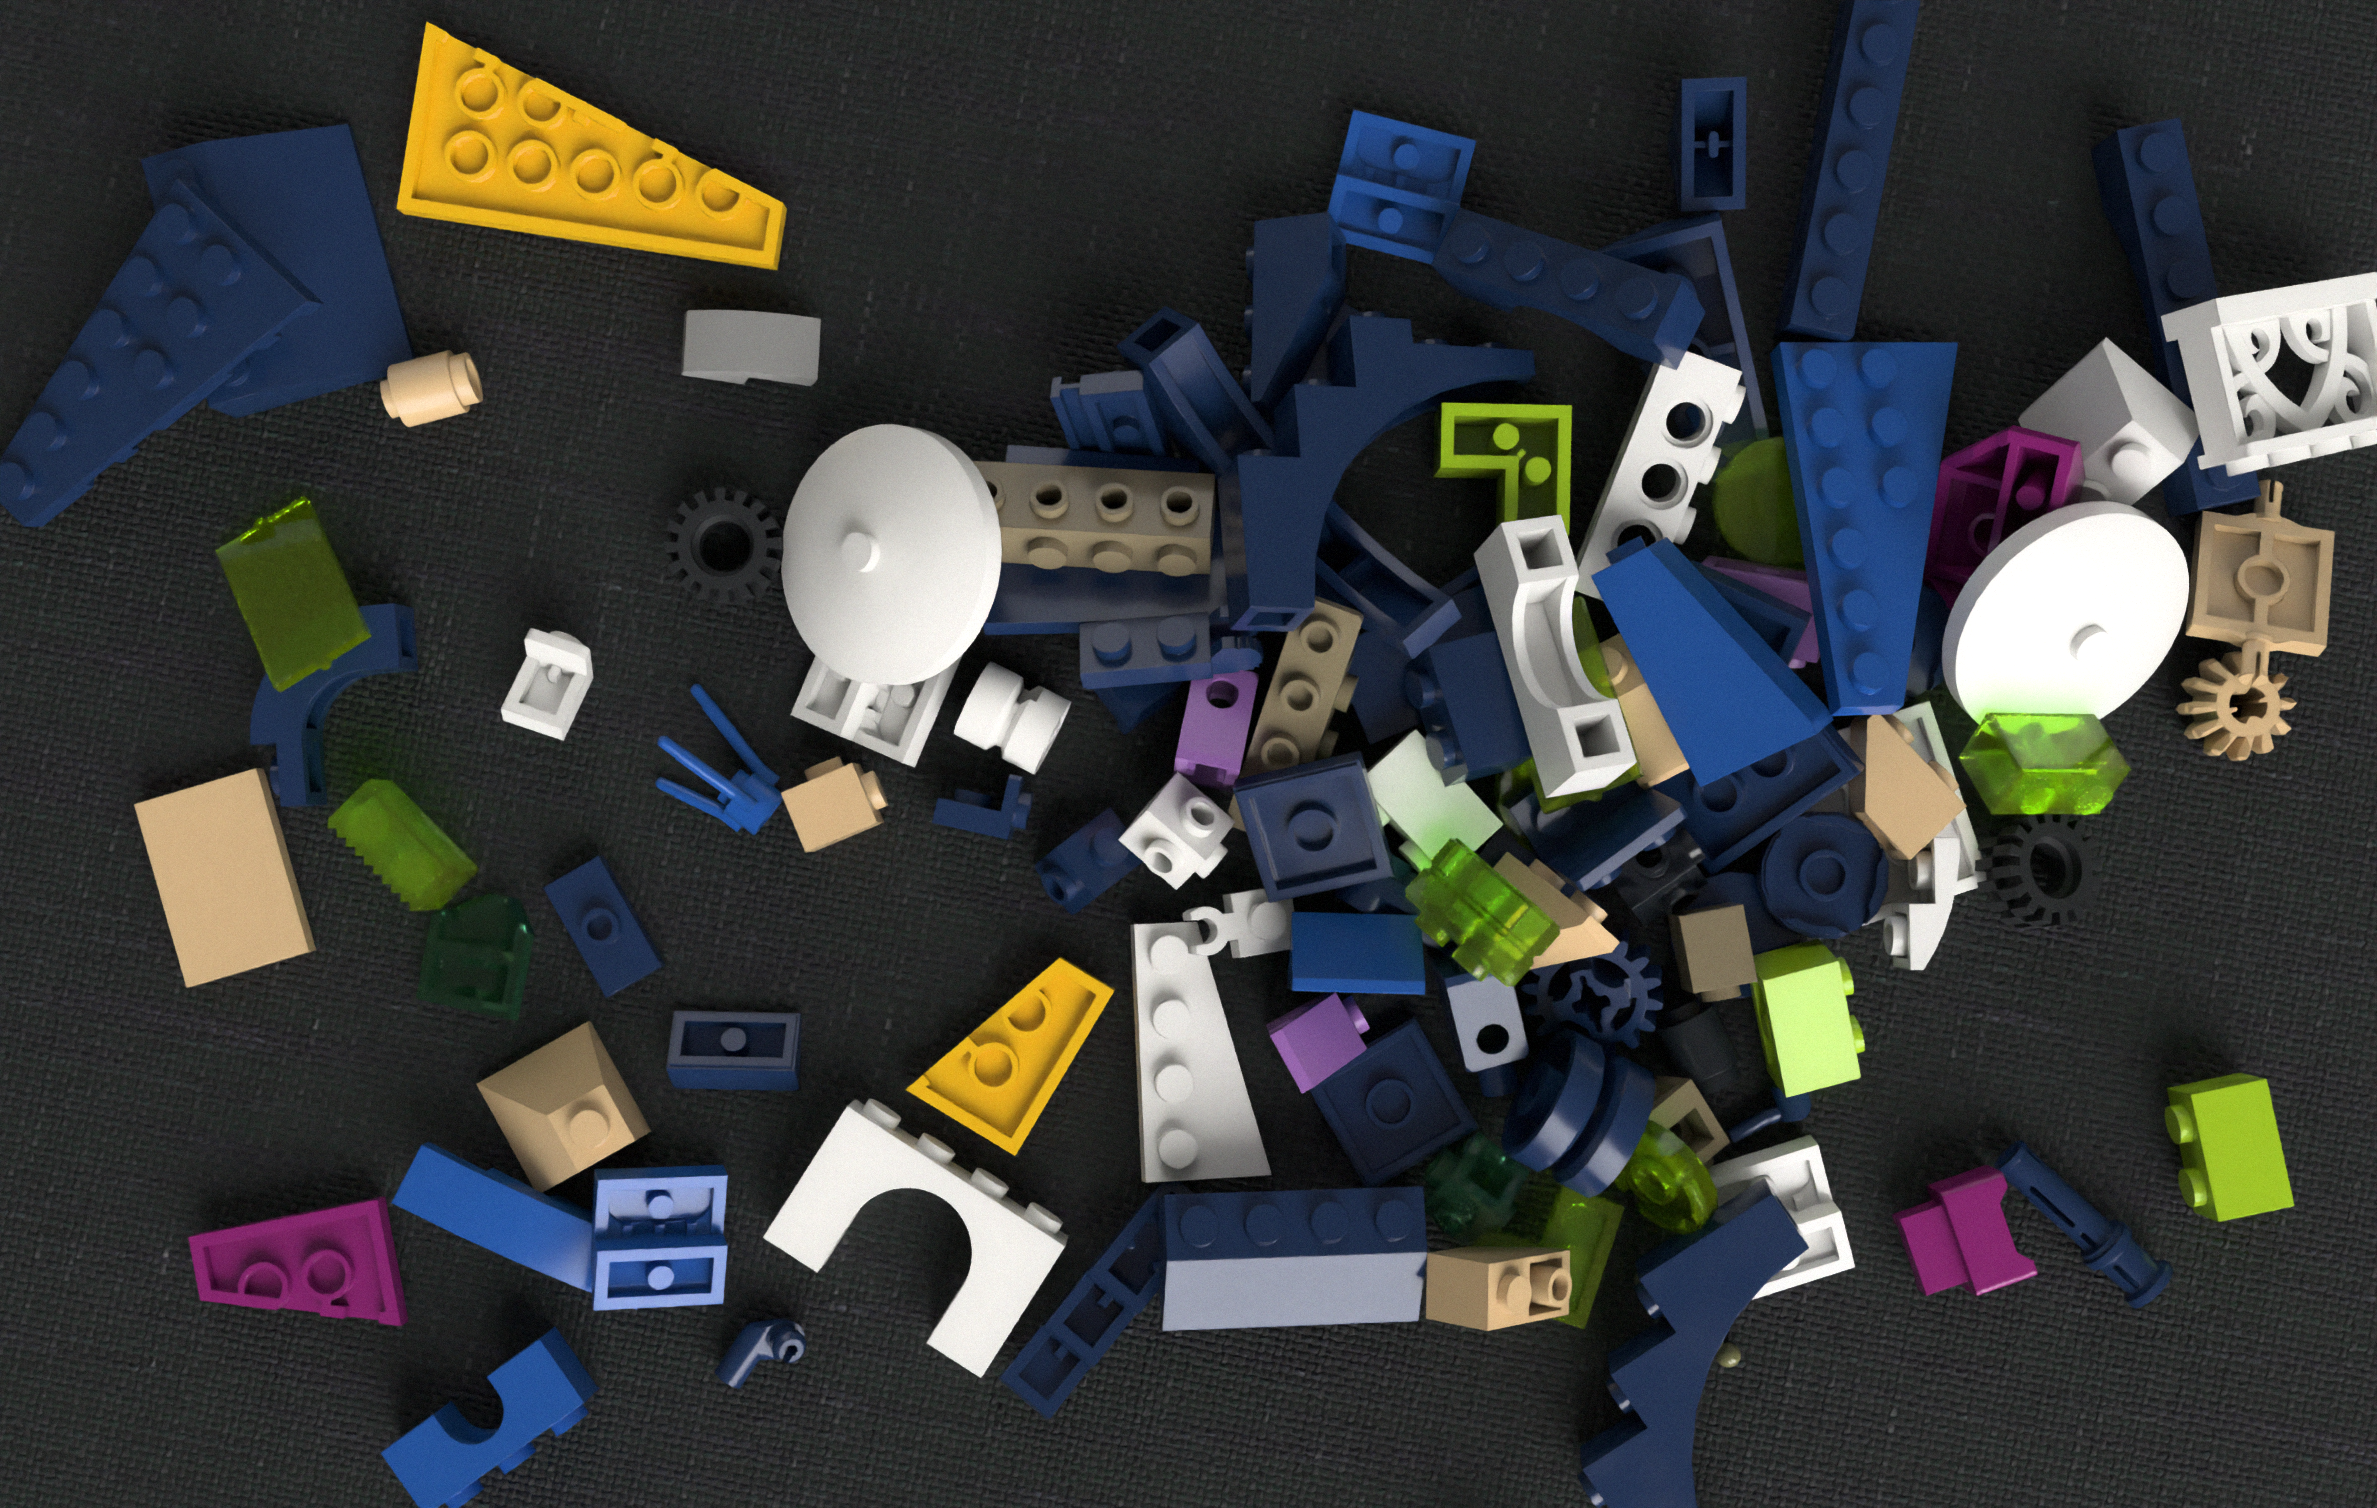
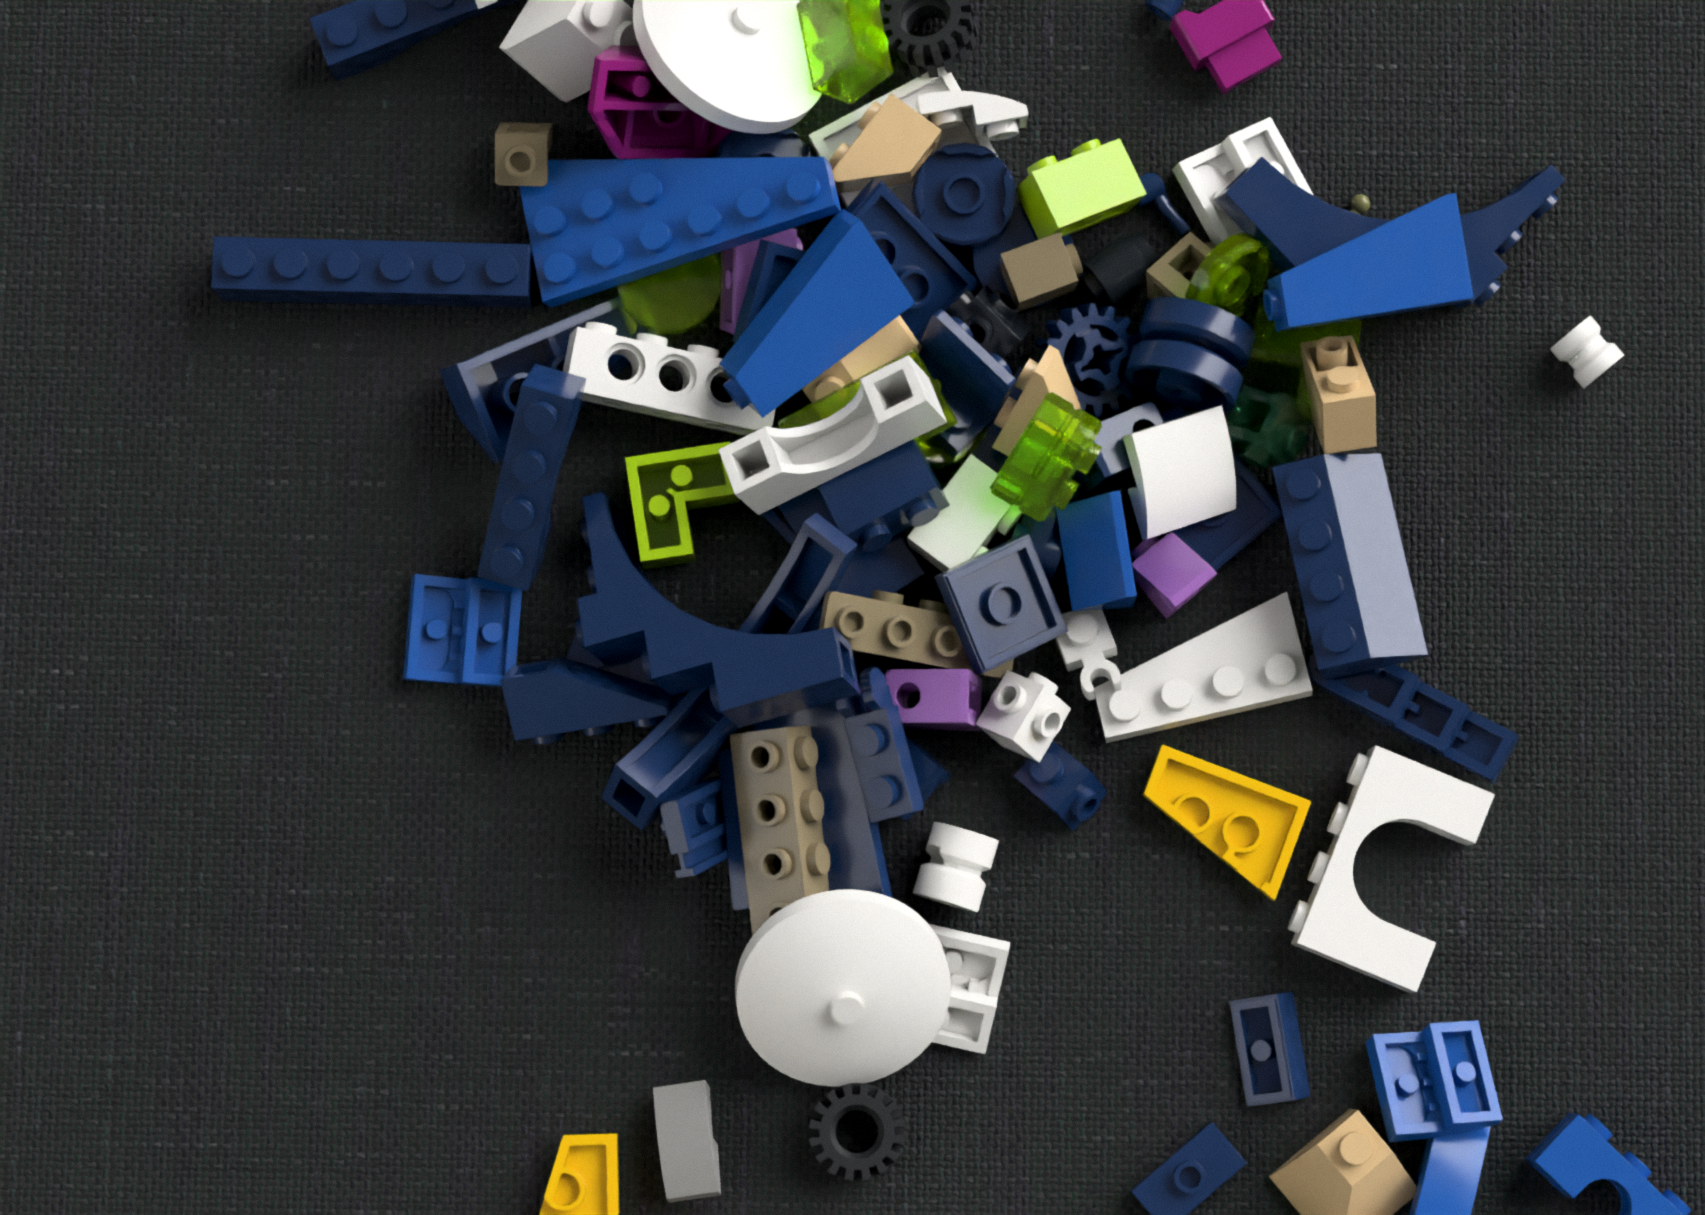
camera: 105 degrees left, 5 degrees down
(746, 798) = (1061, 1075): blue plant -> none
(757, 1342) = (1503, 983): dark blue arm -> none
(834, 803) = (1052, 1001): tan brick -> none
(973, 810) = (1038, 886): dark blue bracket -> none
(1436, 1075) = (1181, 472): none -> white slope
(1639, 1373) = (1387, 271): none -> blue slope
(1709, 144) = (391, 384): dark blue slope -> none
(1966, 350) = (522, 153): none -> dark tan bracket

